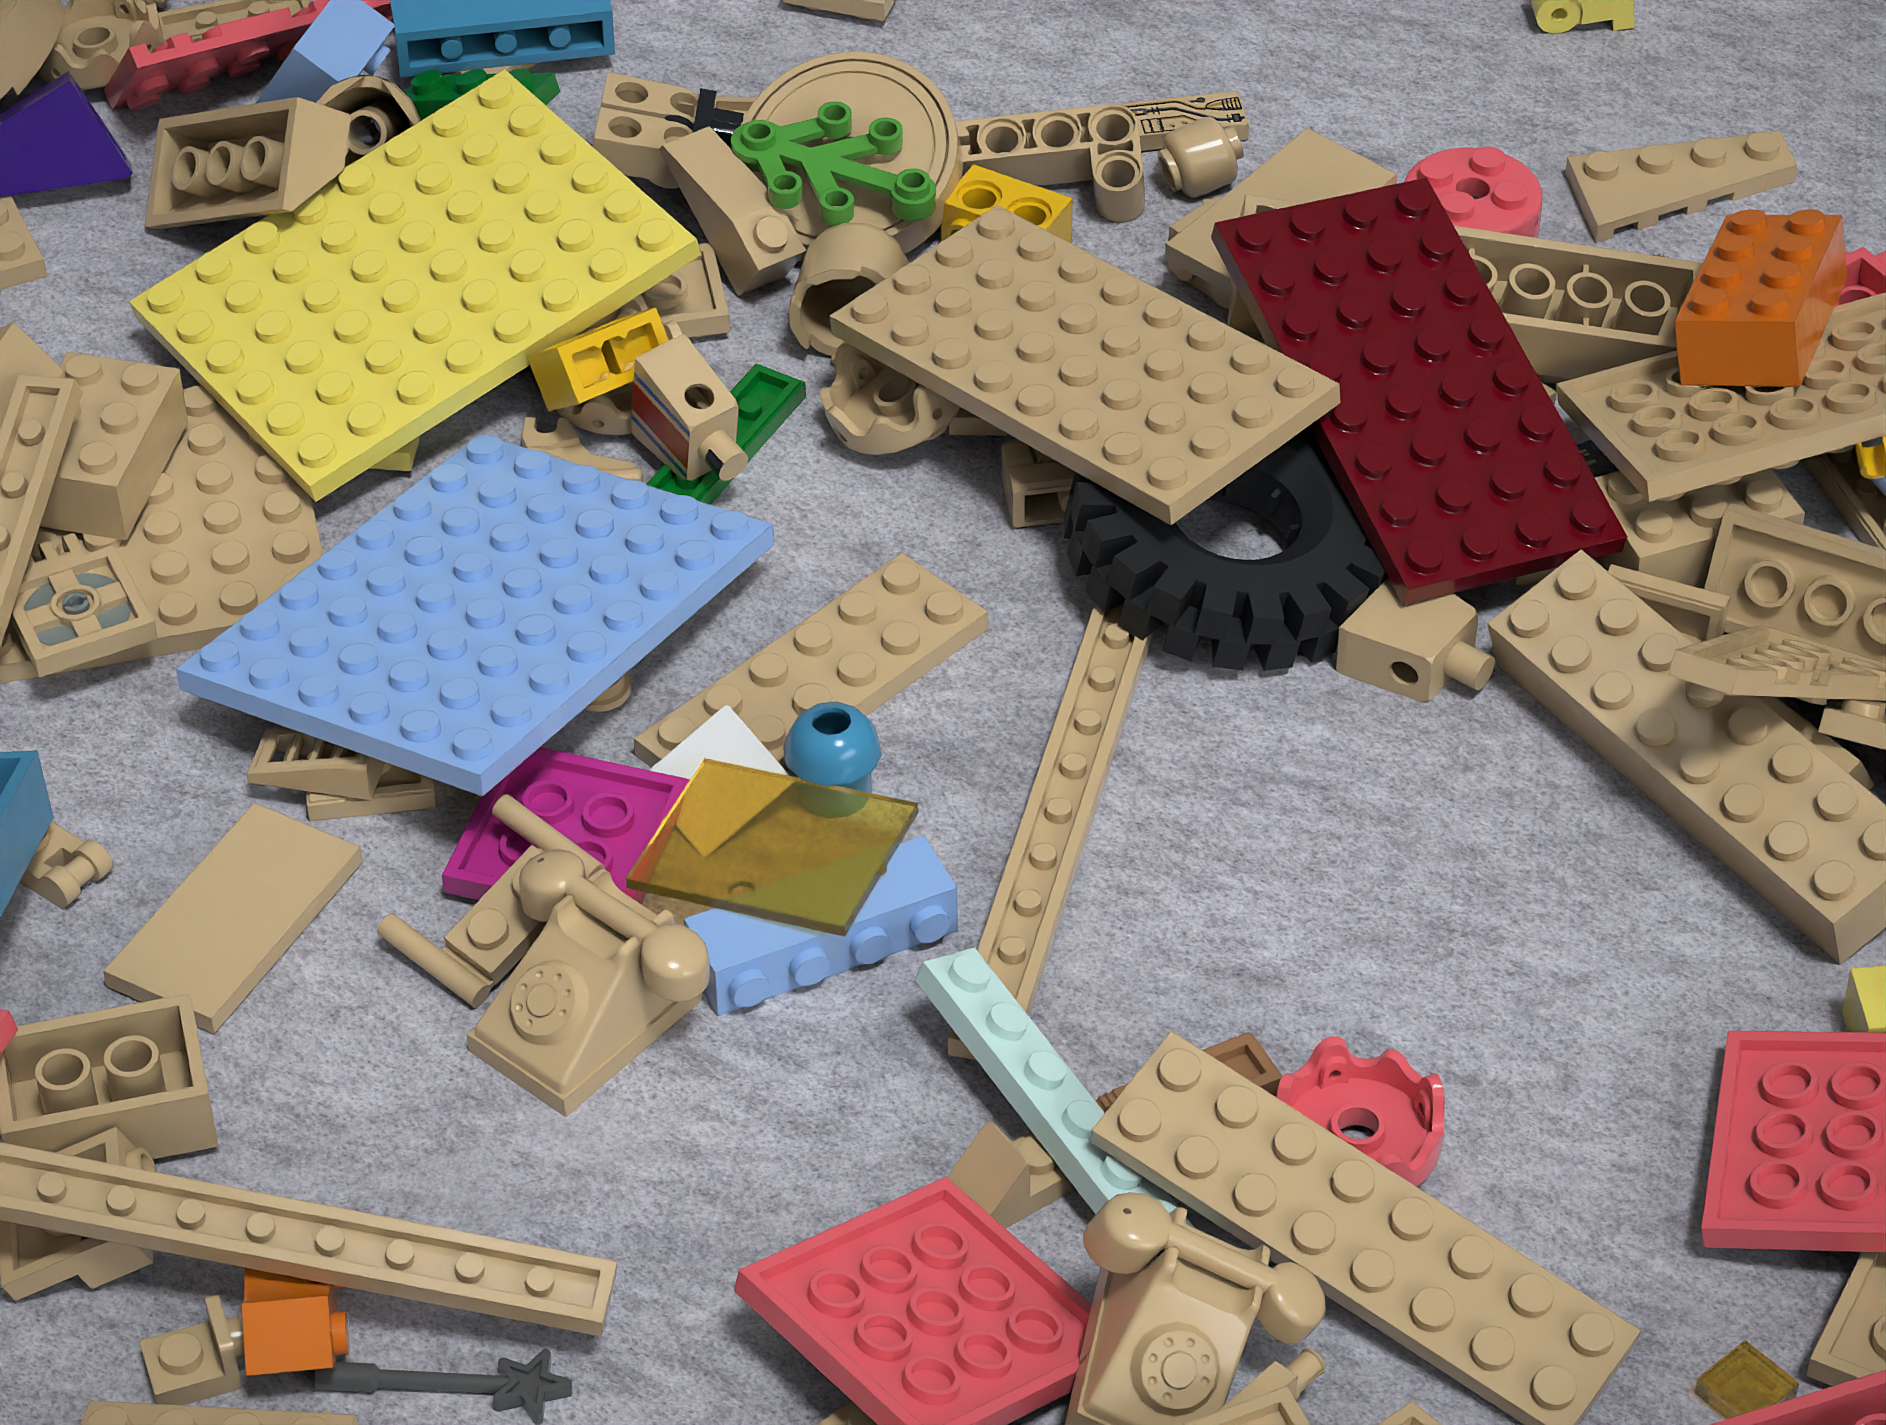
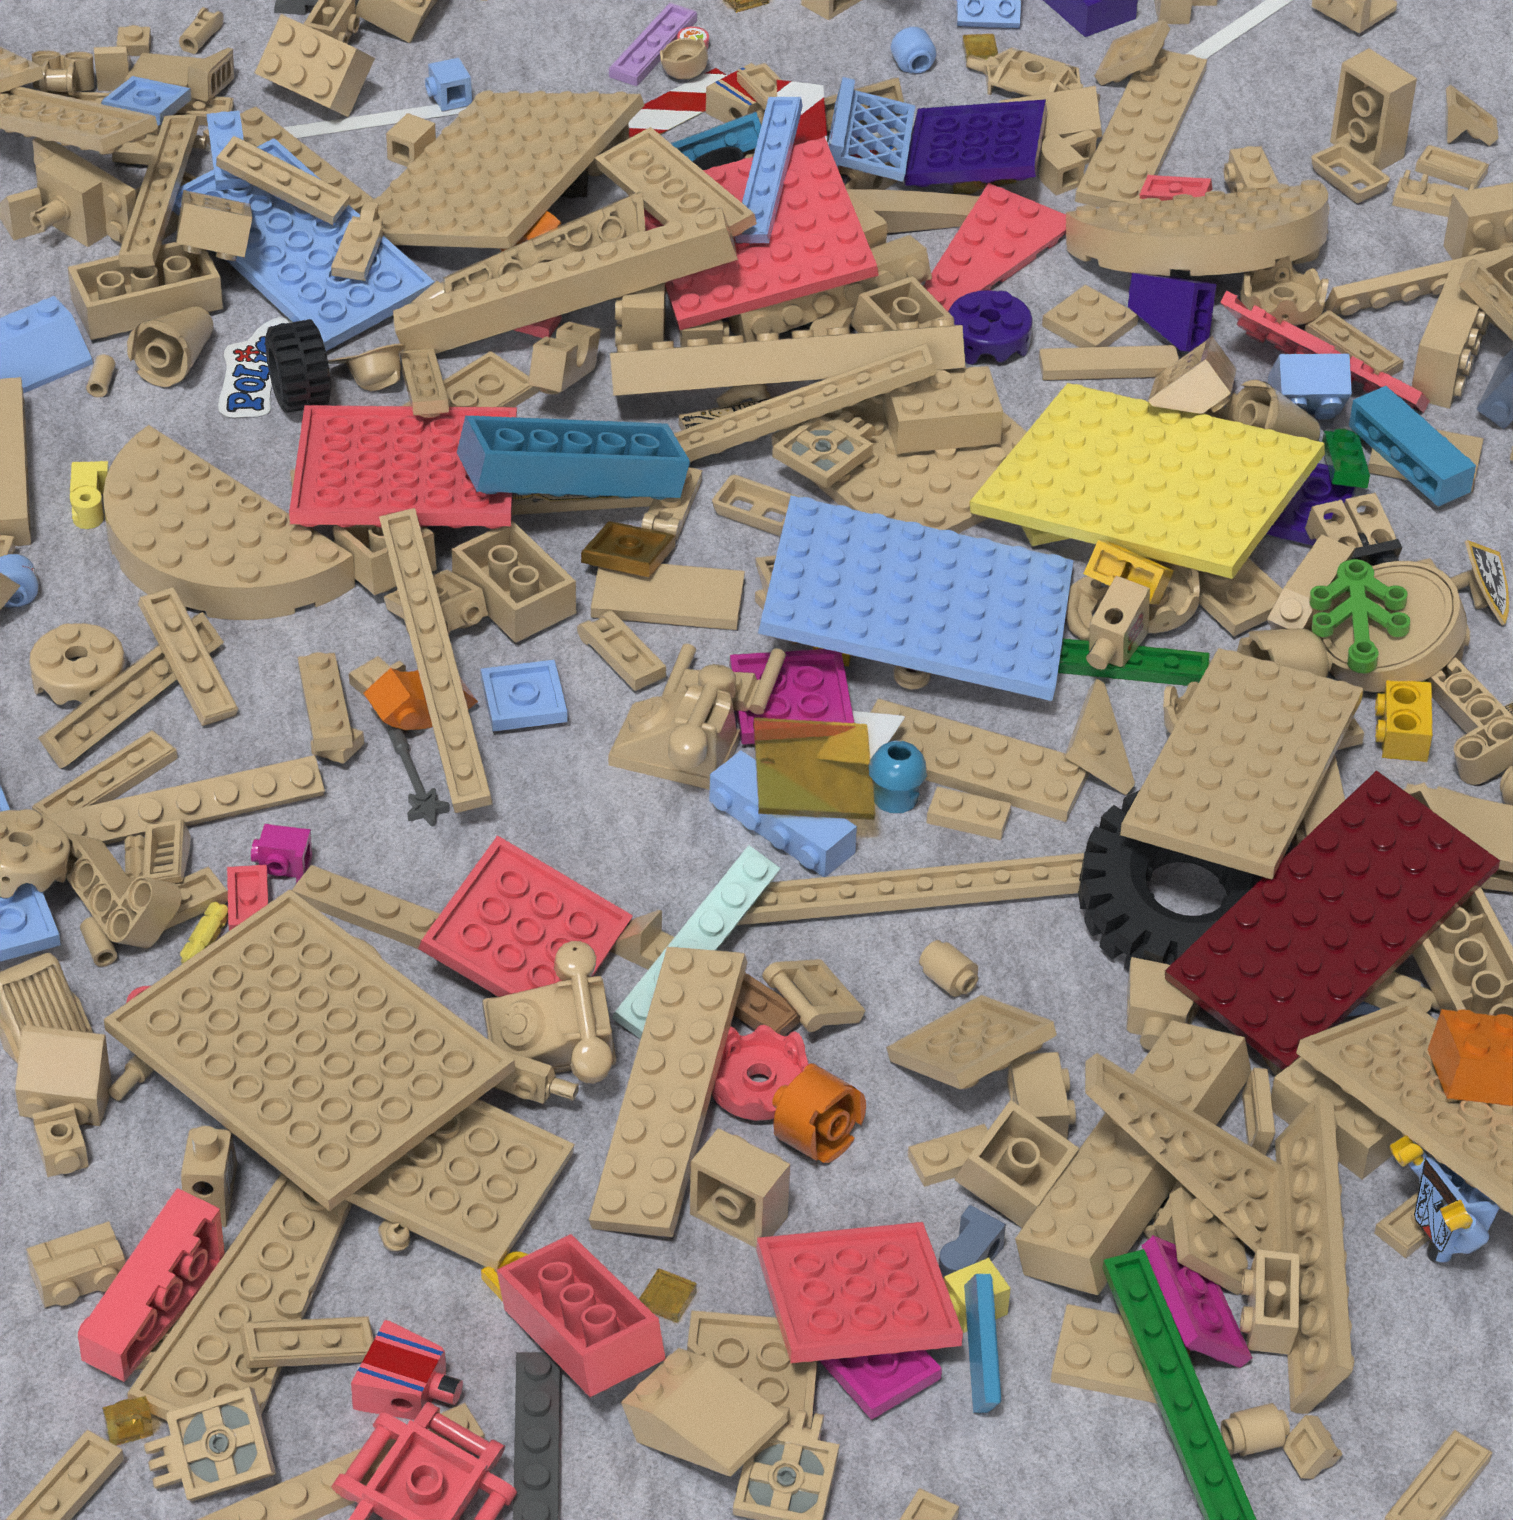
camera: 65 degrees right, 0 degrees up
(80, 263) = (1105, 362): none -> tan tile
(100, 732) = (759, 495): none -> tan piece
(110, 926) = (628, 548): none -> pearl gold tile
(330, 1009) = (622, 650): none -> tan plate
(364, 1158) = (523, 695): none -> light blue plate
(785, 47) = (1486, 580): none -> shield
(855, 527) = (1098, 743): none -> tan wing
(926, 719) = (968, 813): none -> tan plate
(1229, 1004) = (818, 984): none -> tan plate
(1240, 838) = (949, 968): none -> tan brick
(1424, 852) = (971, 1042): none -> tan plate
(1491, 1071) = (818, 1113): none -> orange brick
(1538, 826) = (1041, 1087): none -> tan brick
(1594, 961) = (944, 1156): none -> tan plate
(1612, 1206) = (739, 1187): none -> tan brick
(1681, 880) = (1016, 1163): none -> tan brick
(1791, 988) = (978, 1239): none -> sand blue leg

